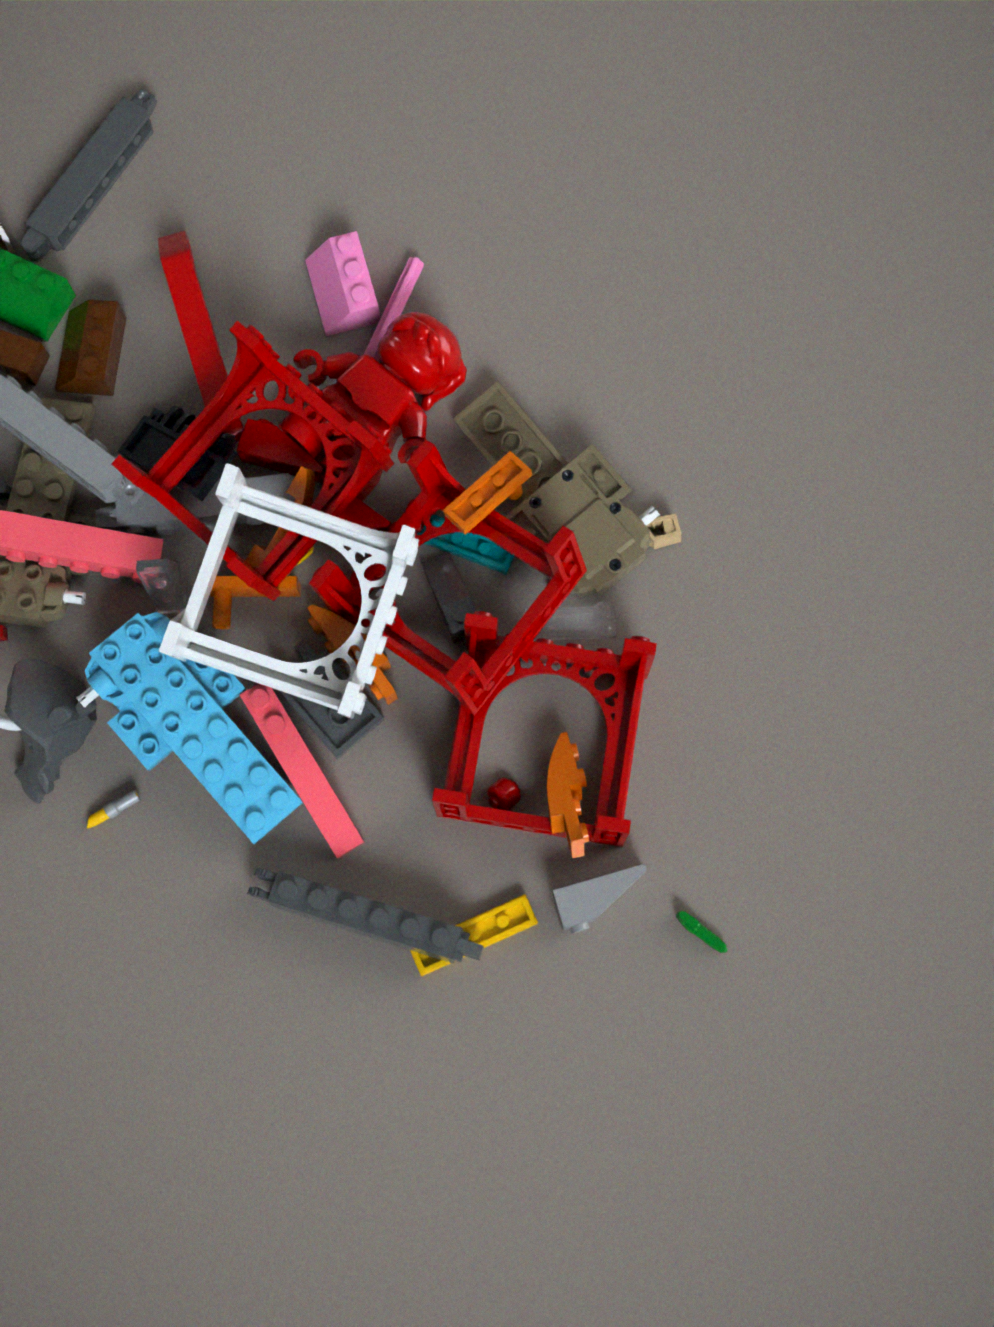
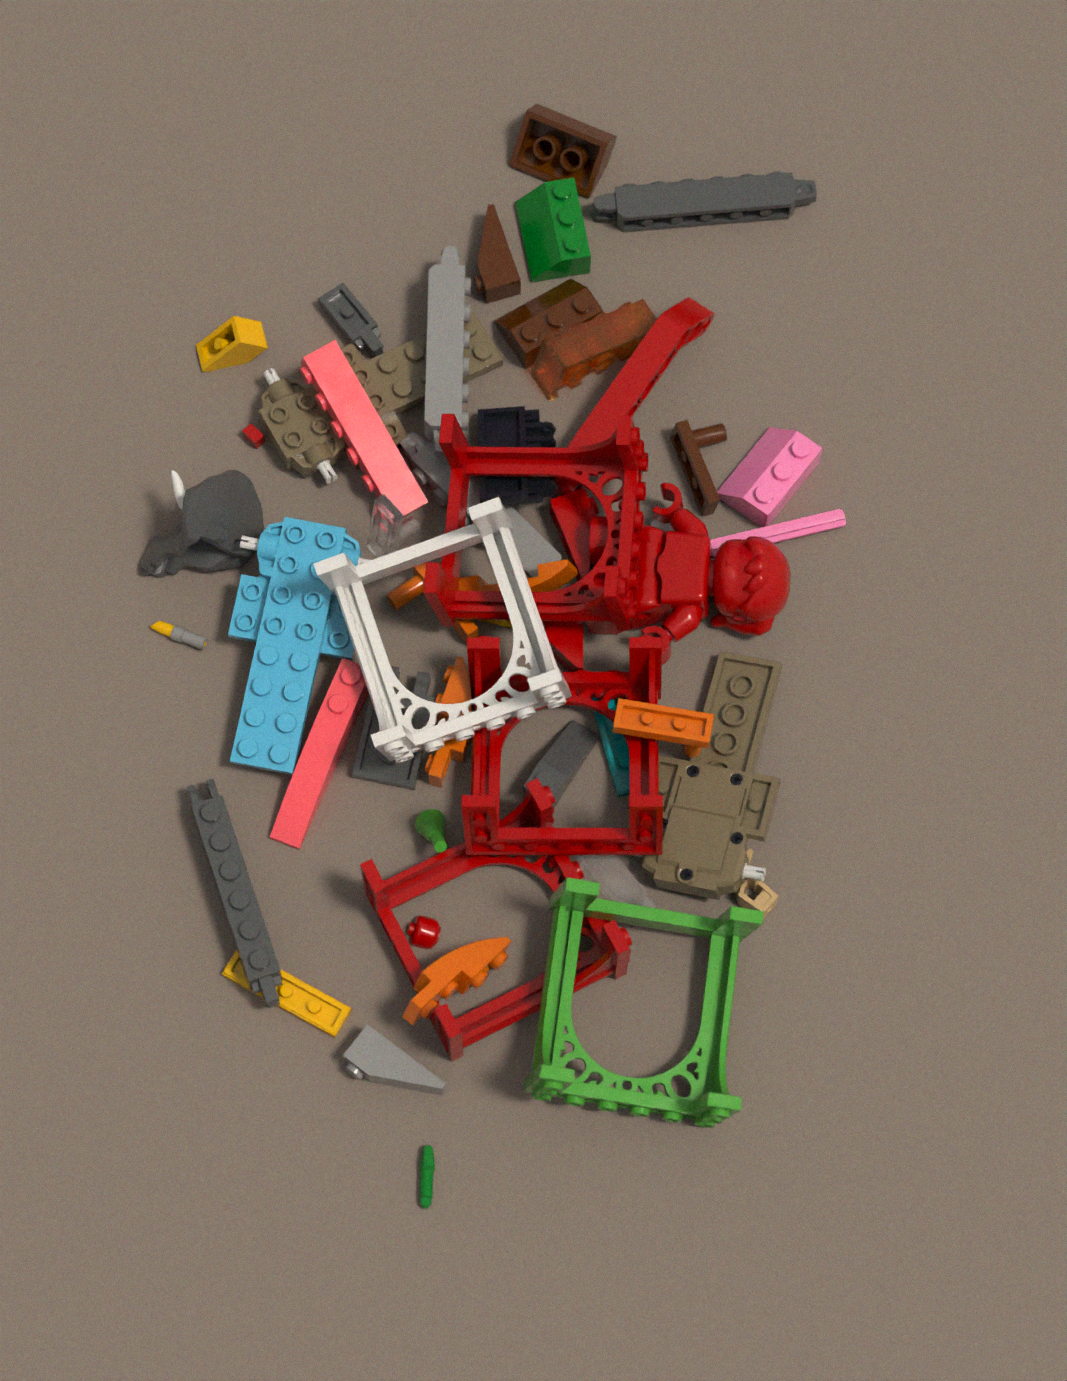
camera: 50 degrees right, 5 degrees down
(139, 333) = (590, 347): none -> clear orange wedge
(292, 331) = (687, 445): none -> reddish brown piece
(427, 727) = (432, 826): none -> bright green cone
(794, 672) = (708, 1096): none -> bright green arch

